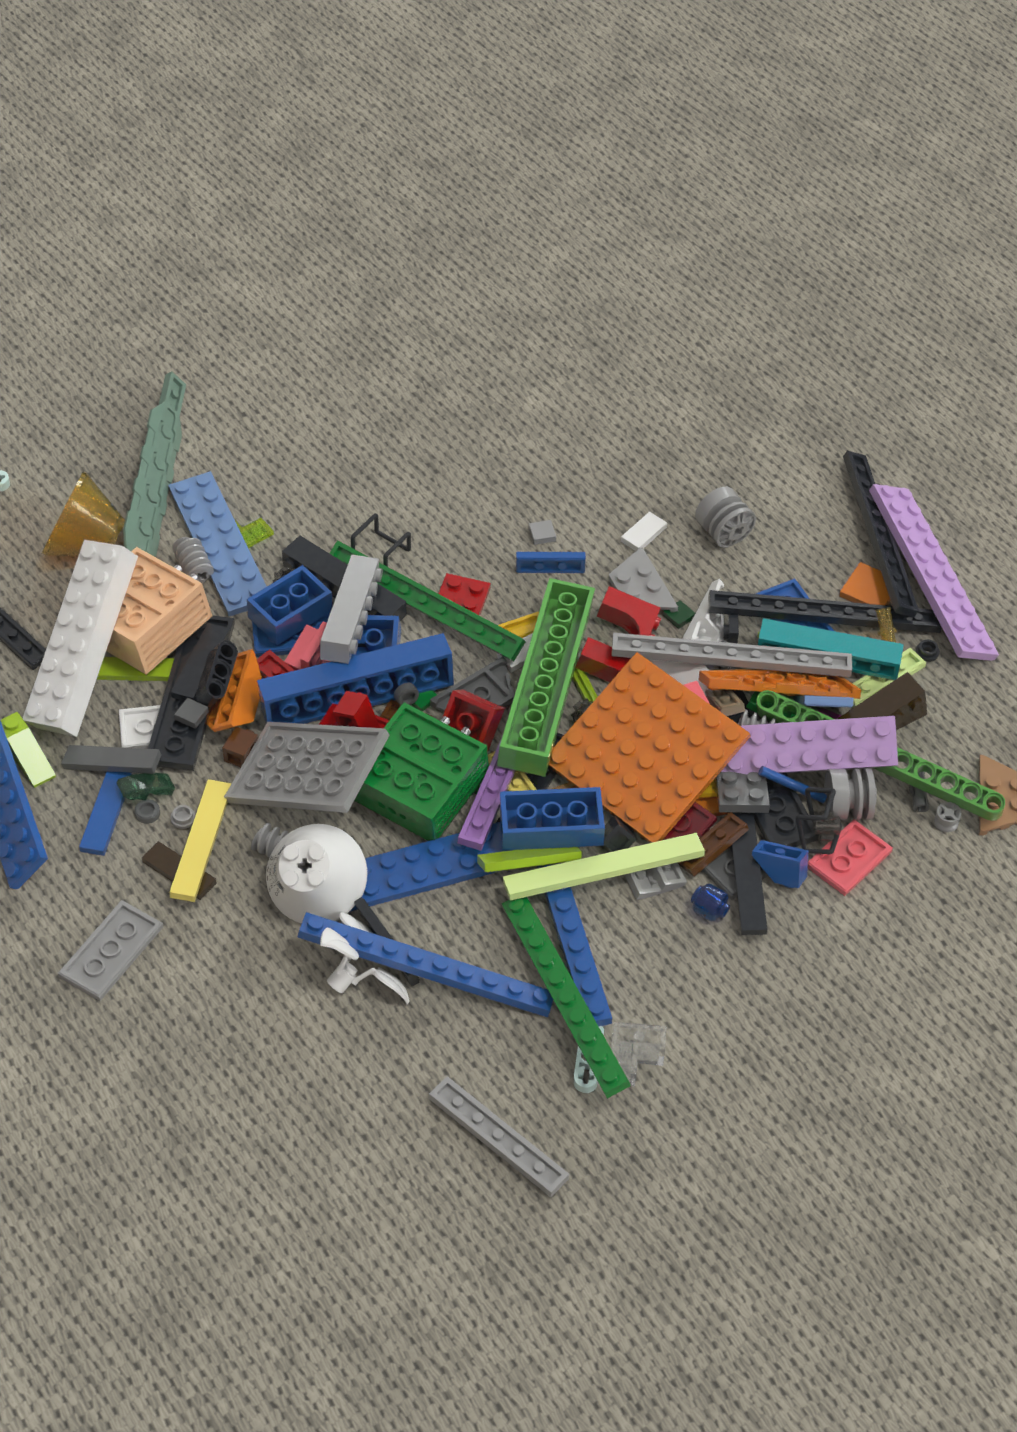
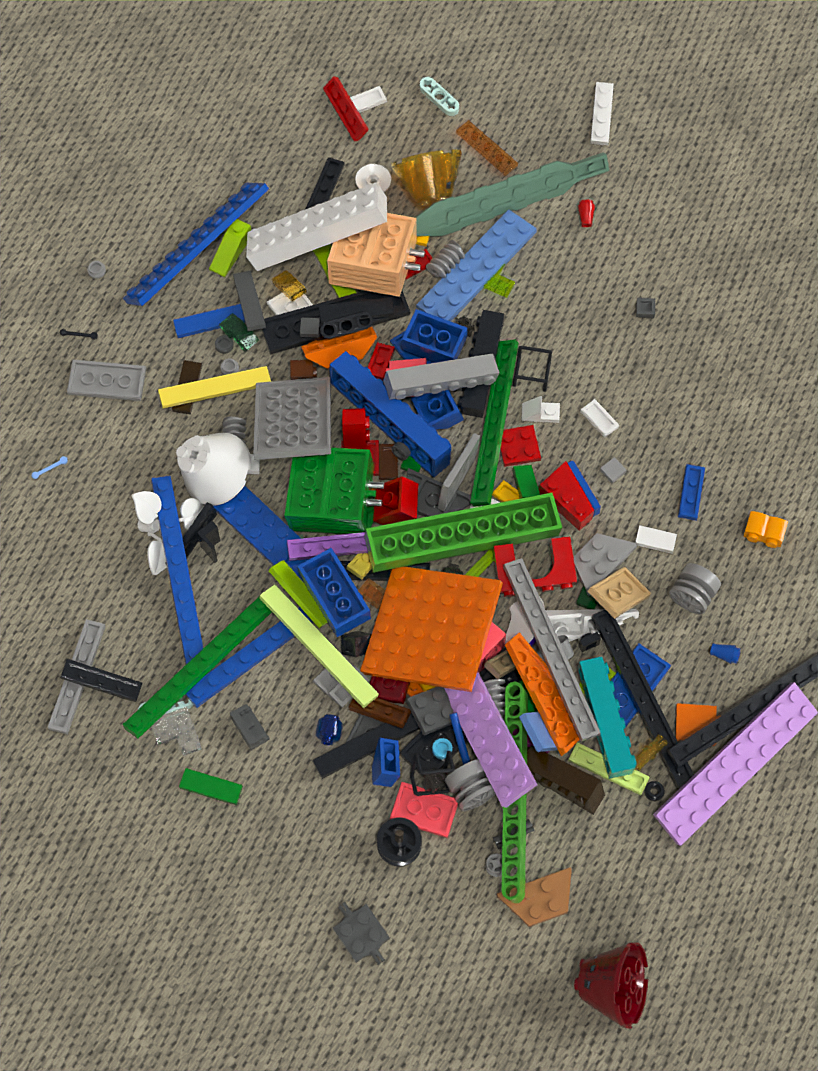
camera: 65 degrees right, 15 degrees up
(37, 940) = (93, 335): none -> black hinge
(39, 582) = (375, 173): none -> white dish
(70, 473) = (487, 148): none -> clear orange tile
(109, 364) = (602, 113): none -> white plate
(118, 714) = (289, 285): none -> clear yellow tile
(190, 1040) = (63, 460): none -> light blue hinge
(222, 424) = (586, 211): none -> red cone
(371, 426) = (645, 307): none -> dark grey plate
(410, 922) = (208, 538): none -> black panel
(432, 561) = (538, 411): none -> white slope
(473, 518) = (599, 418): none -> white tile
(473, 647) = (458, 472): none -> light grey tile
(512, 606) = (525, 481): none -> green tile
(520, 1109) = (101, 680): none -> black tile
(535, 571) = (568, 496): none -> red wedge
(607, 482) = (691, 492): none -> blue tile
(664, 983) = (249, 726): none -> dark grey hinge
(686, 441) = (765, 529): none -> light orange brick
(693, 579) = (619, 592): none -> tan tile
(717, 1052) = (211, 786): none -> green tile
(790, 805) = (441, 747): none -> medium azure tile
(806, 528) = (728, 653): none -> blue cone
(881, 890) = (399, 842): none -> black wheel
(969, 974) = (361, 933): none -> dark grey plate

